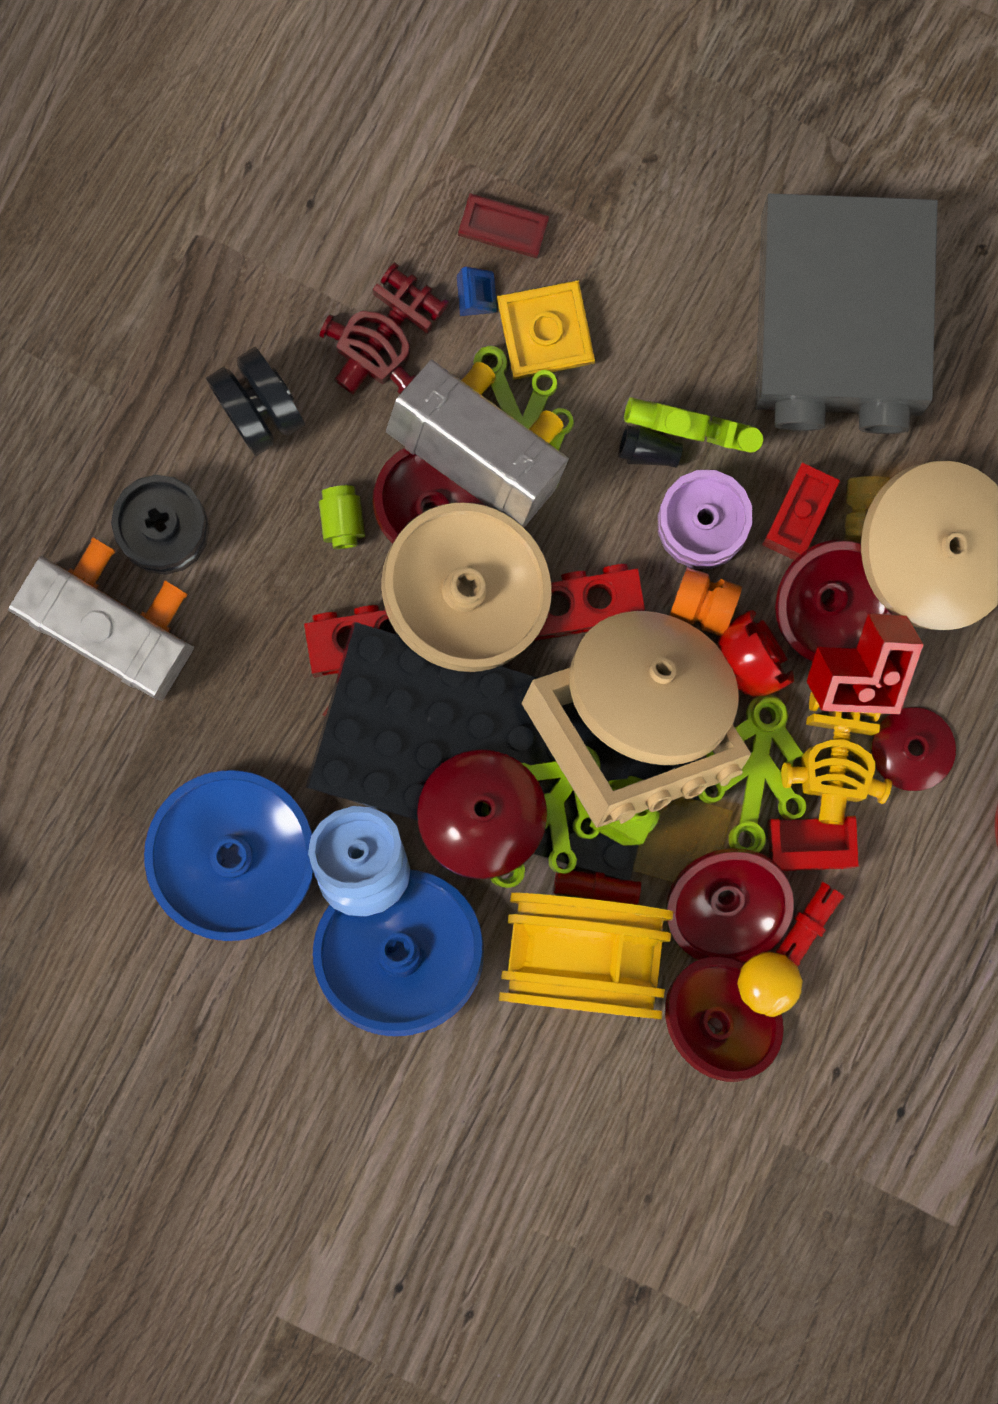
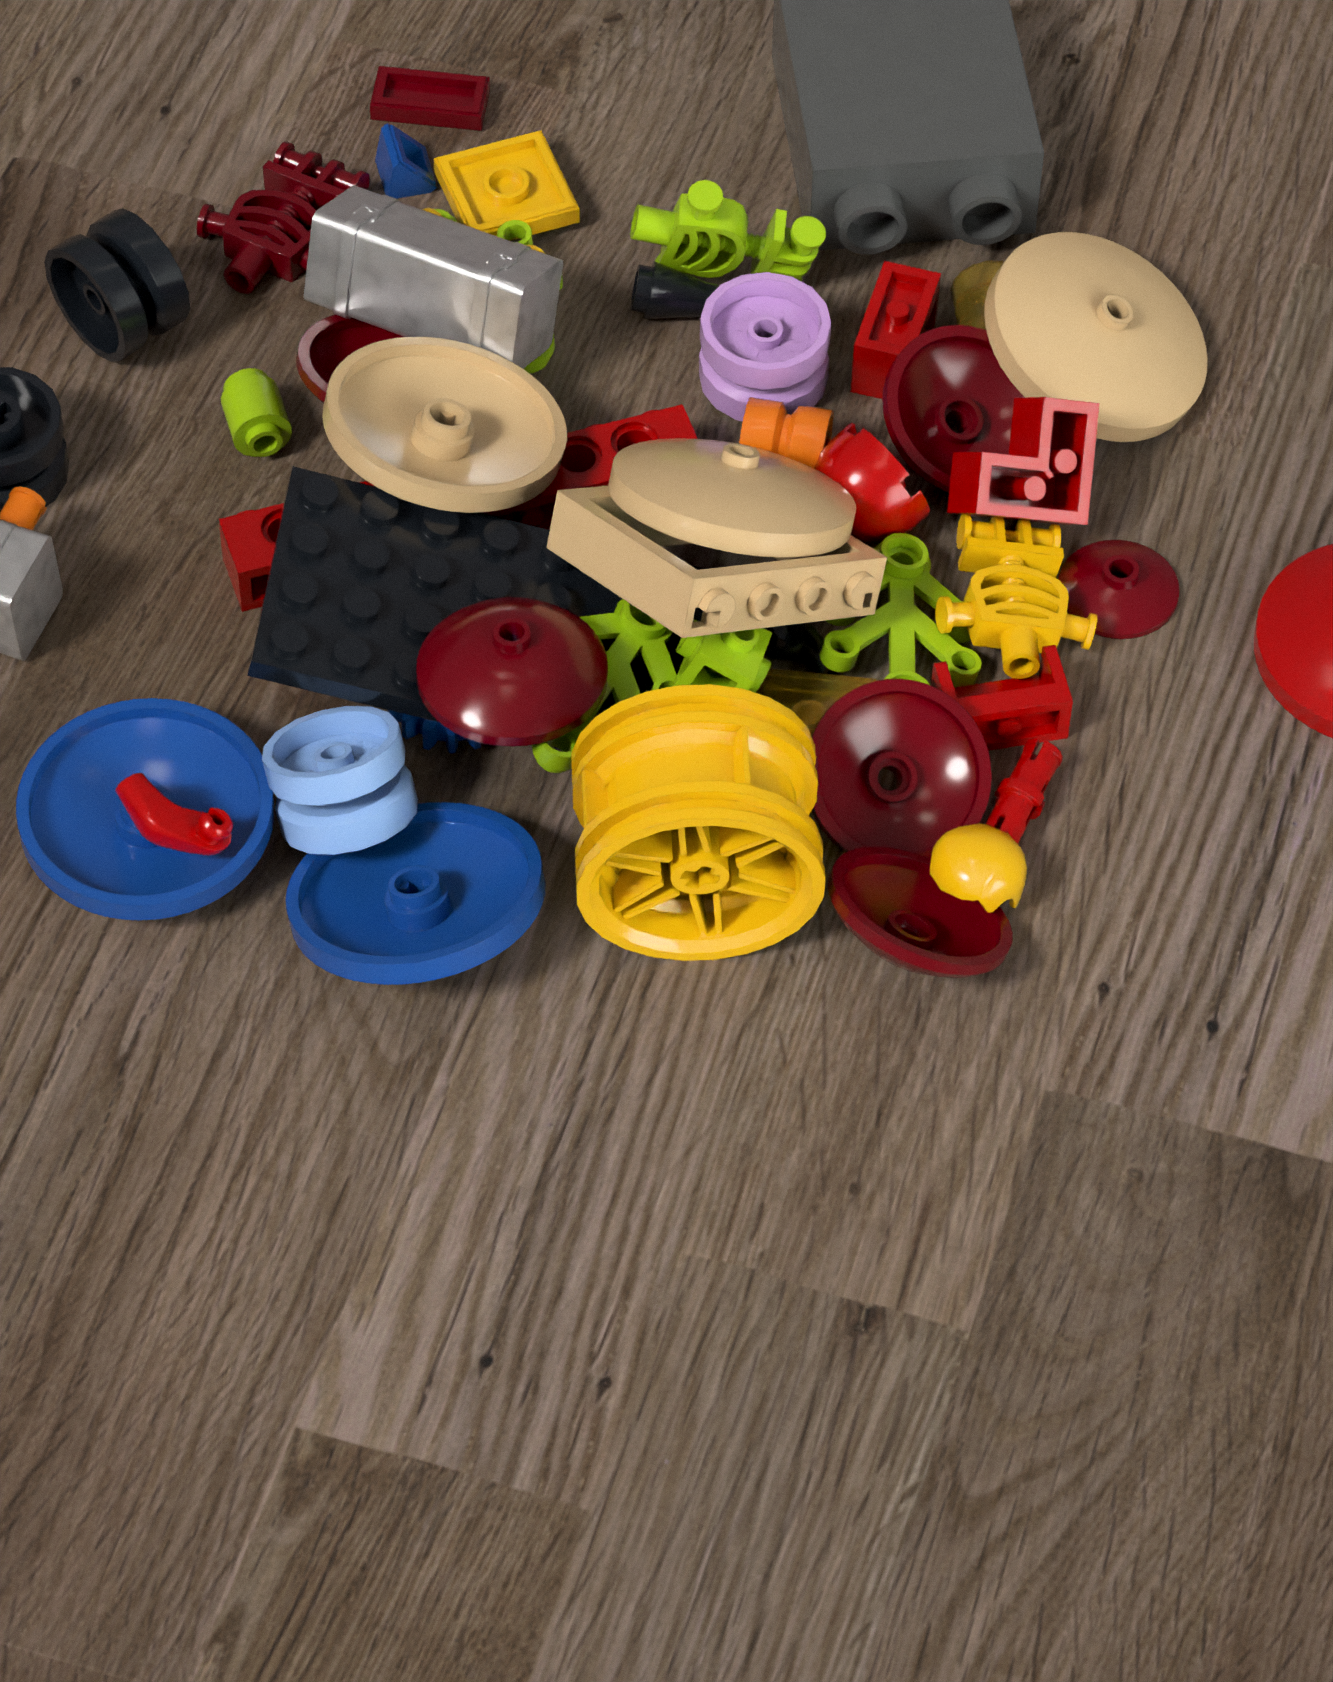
camera: 10 degrees left, 30 degrees down
(244, 886) = (173, 825): none -> red arm

